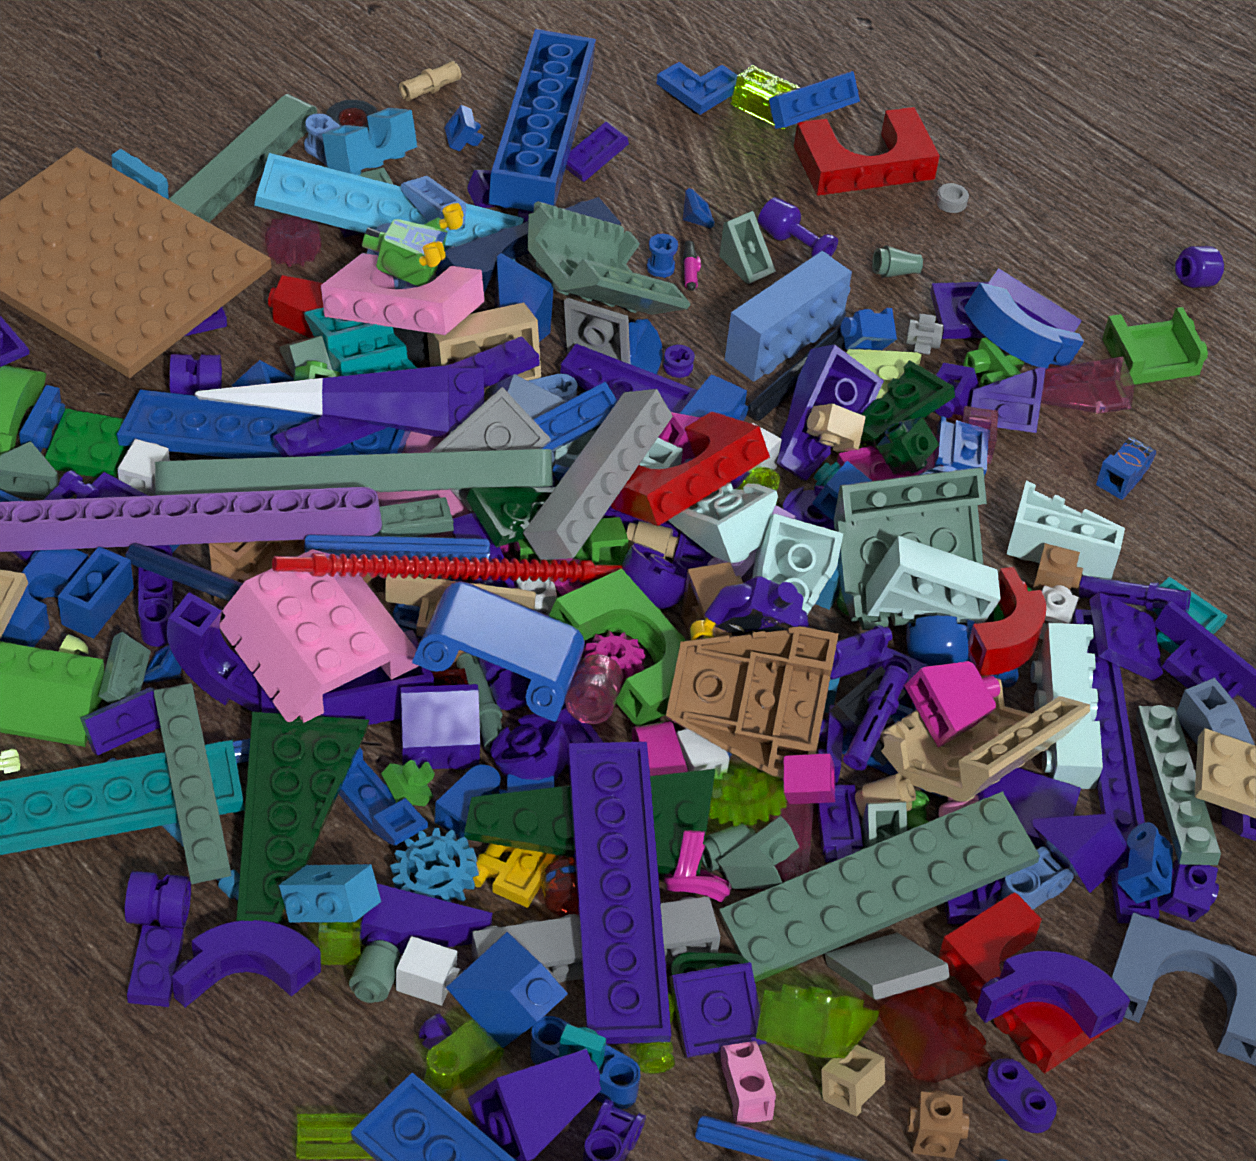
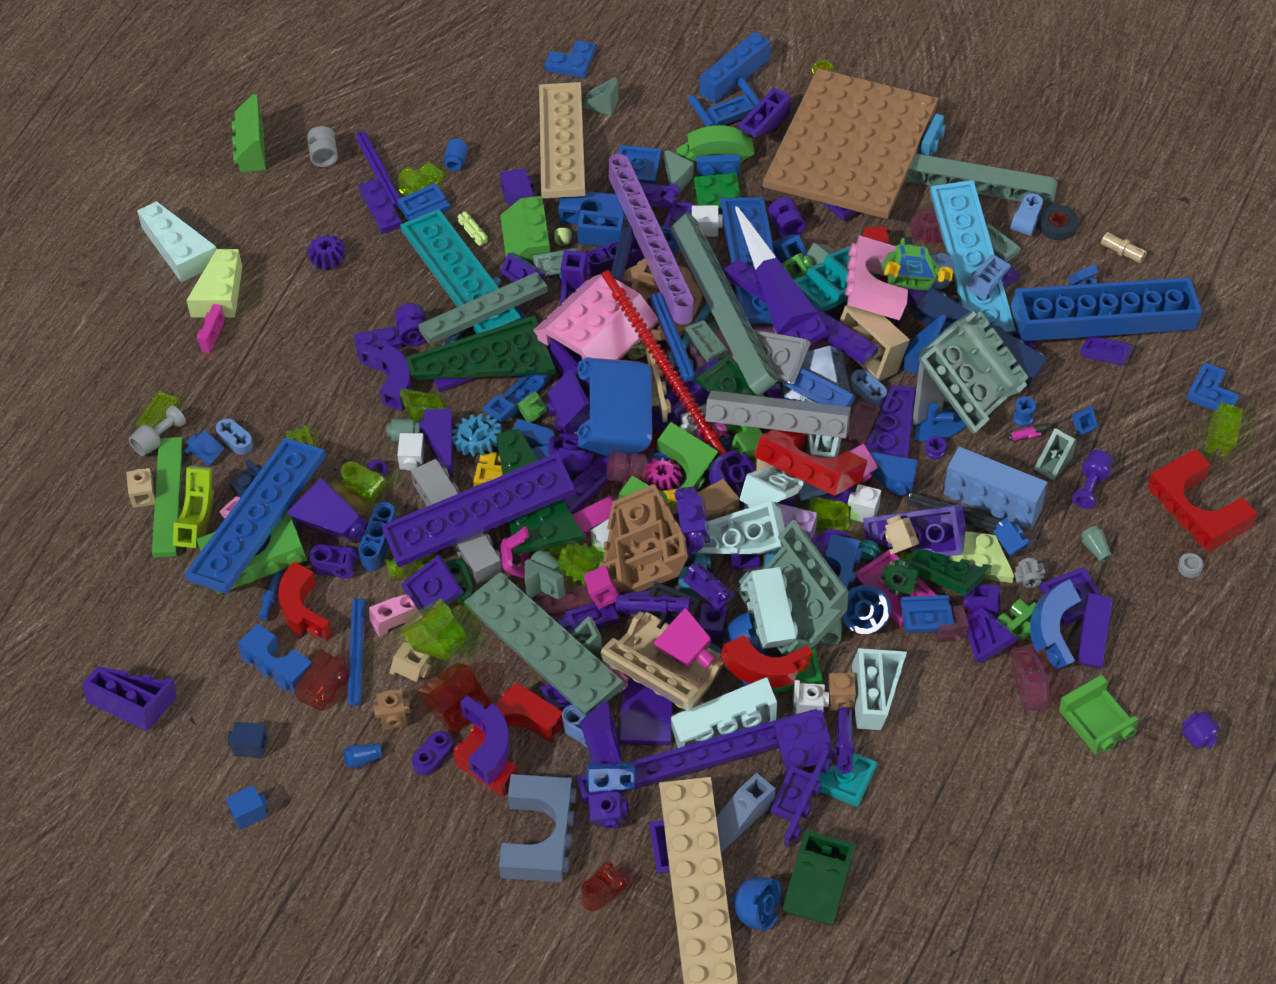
camera: 80 degrees right, 5 degrees up
(330, 893) = (430, 387): dark azure brick -> none
(355, 148) = (1044, 241): dark azure arch -> none
(506, 990) = (406, 484): blue slope -> none
(578, 1039) = (371, 522): teal plate -> none
(814, 99) = (1226, 452): blue plate -> none
(886, 790) = (610, 629): tan brick -> none
(887, 966) = (482, 655): light grey tile -> none
(1128, 463) = (968, 719): blue leg -> none
(1175, 783) = (647, 792): sand green plate -> none

